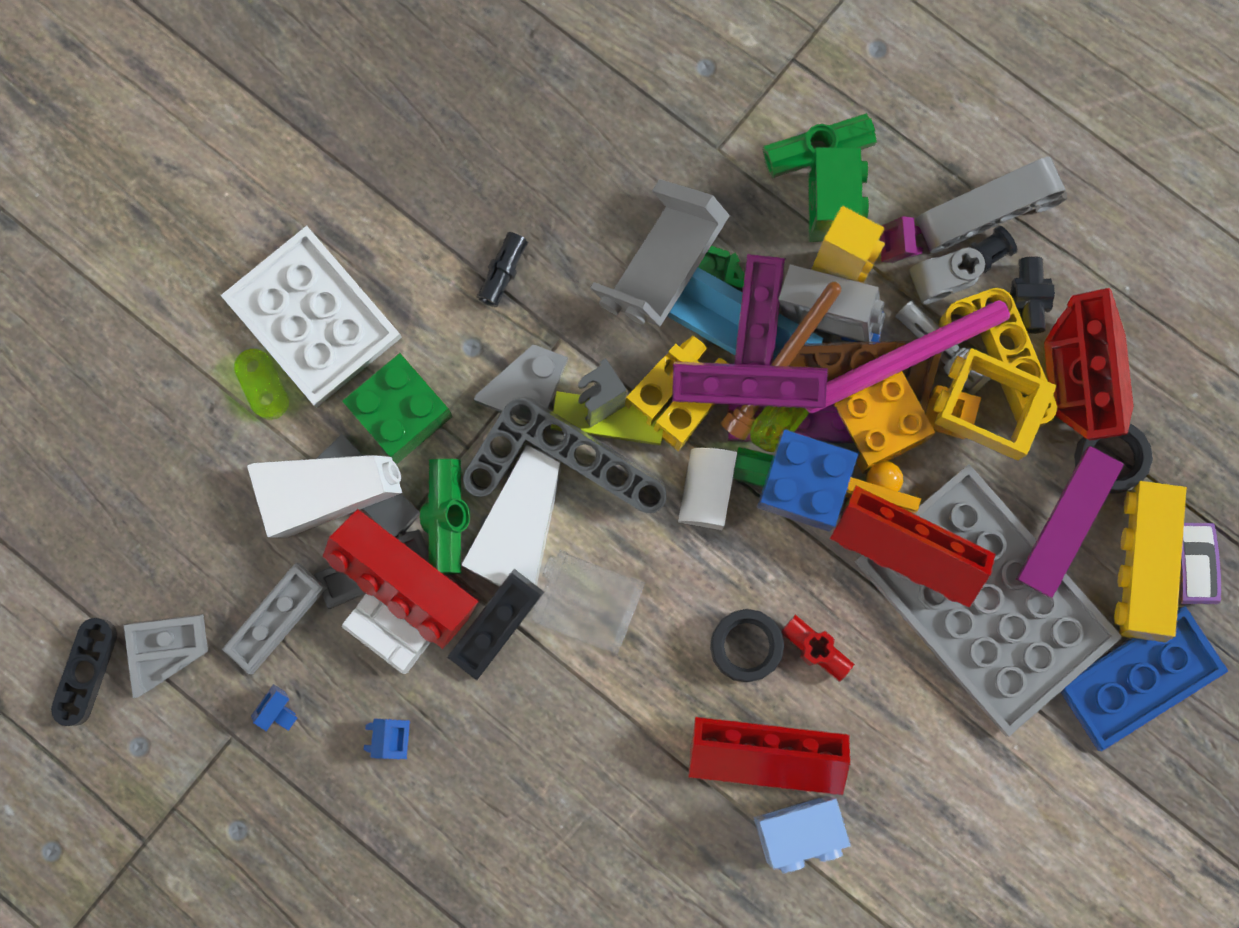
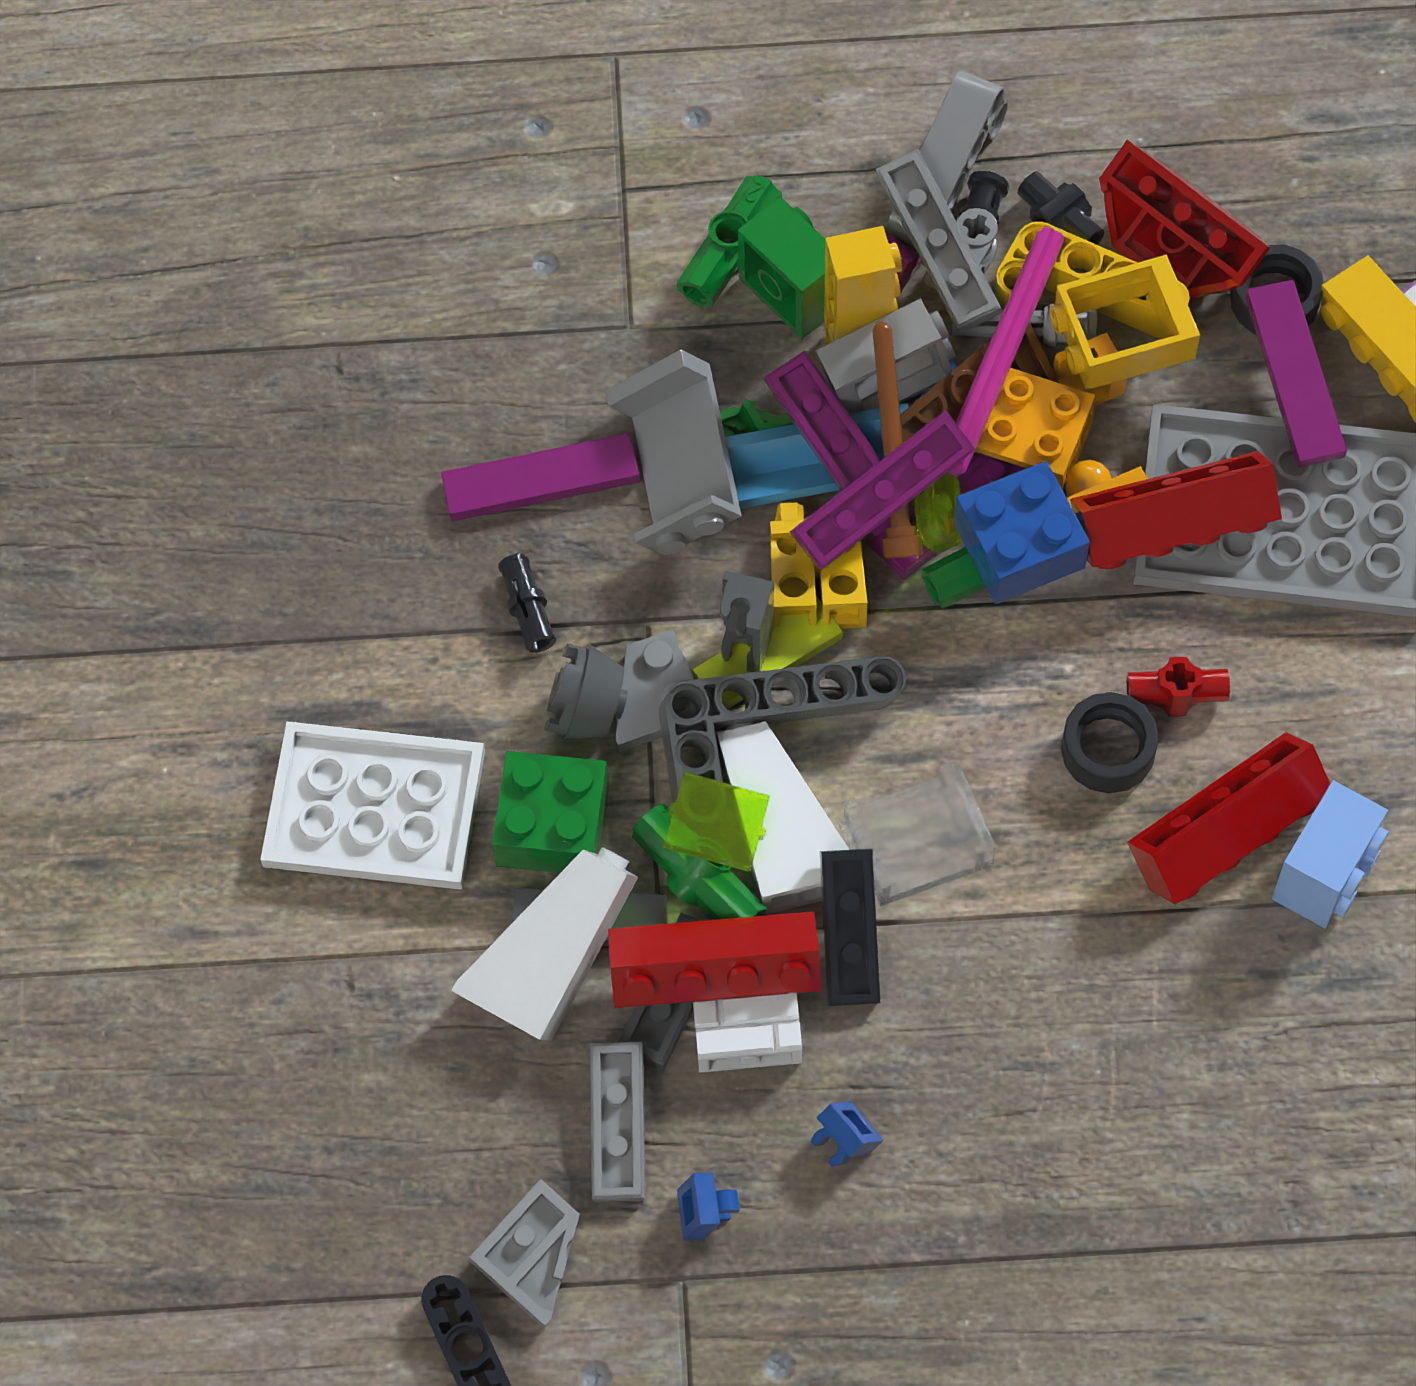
camera: 40 degrees left, 15 degrees down
(261, 382) = (379, 915): clear neon green plate -> none
(473, 500) = (717, 821): none -> clear neon green piece
(477, 356) = (586, 694): none -> dark grey cone
(580, 198) = (540, 477): none -> magenta tile
(707, 487) = (929, 632): white brick -> none
(935, 253) = (938, 241): none -> light grey tile

